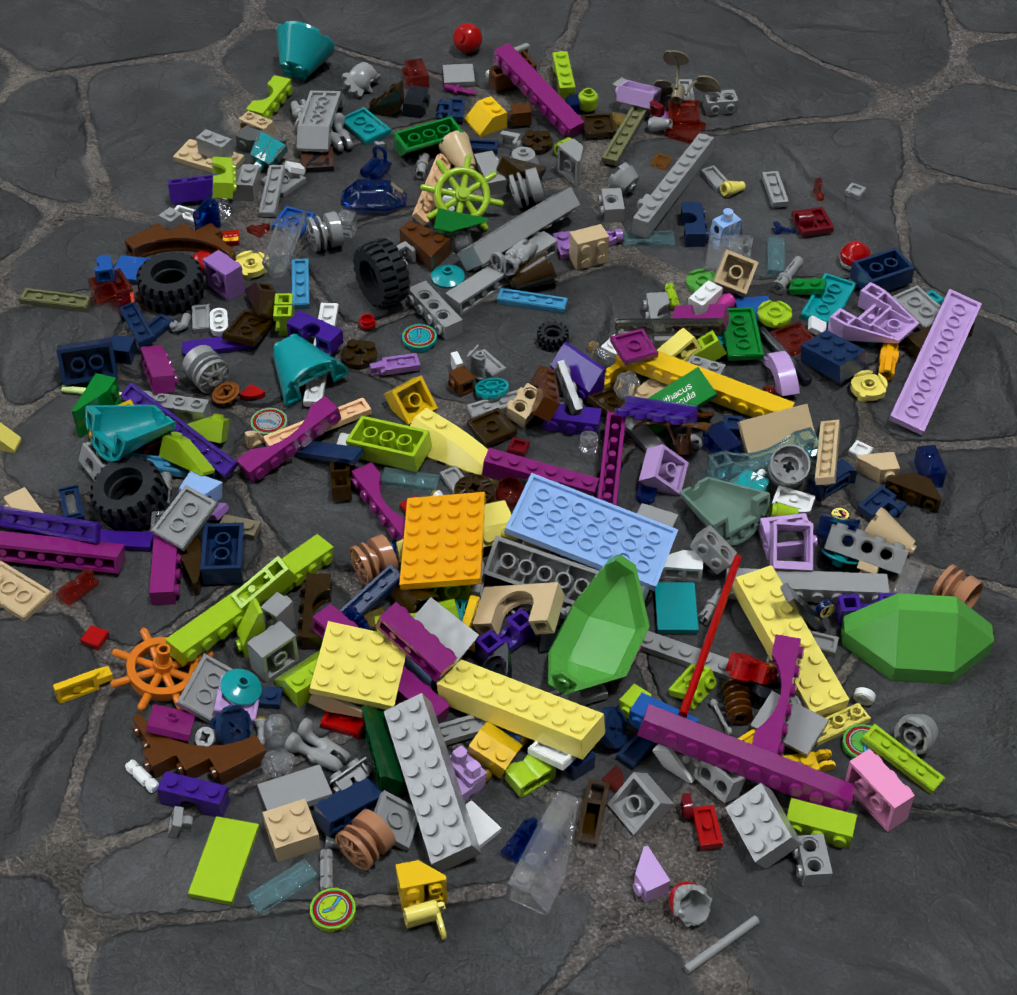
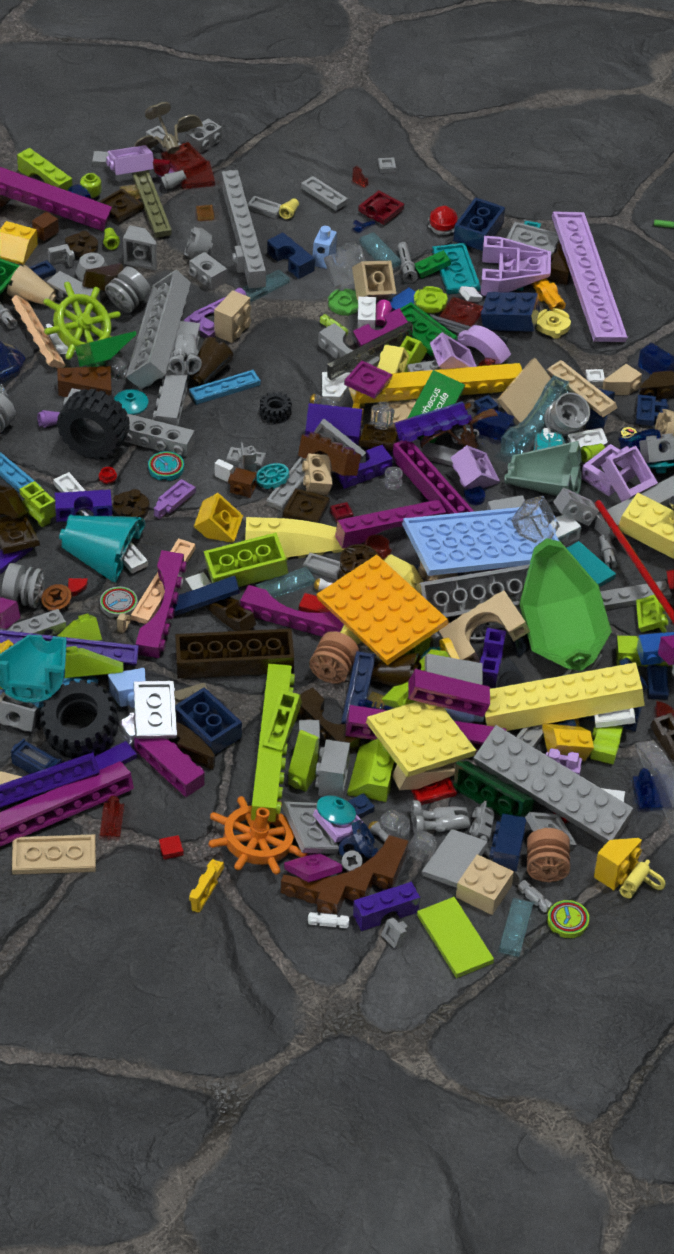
camera: 40 degrees left, 0 degrees up
(303, 510) = (232, 652): none -> dark brown brick
(651, 540) = (535, 520): none -> clear slope
(737, 351) = (453, 353): none -> lavender window

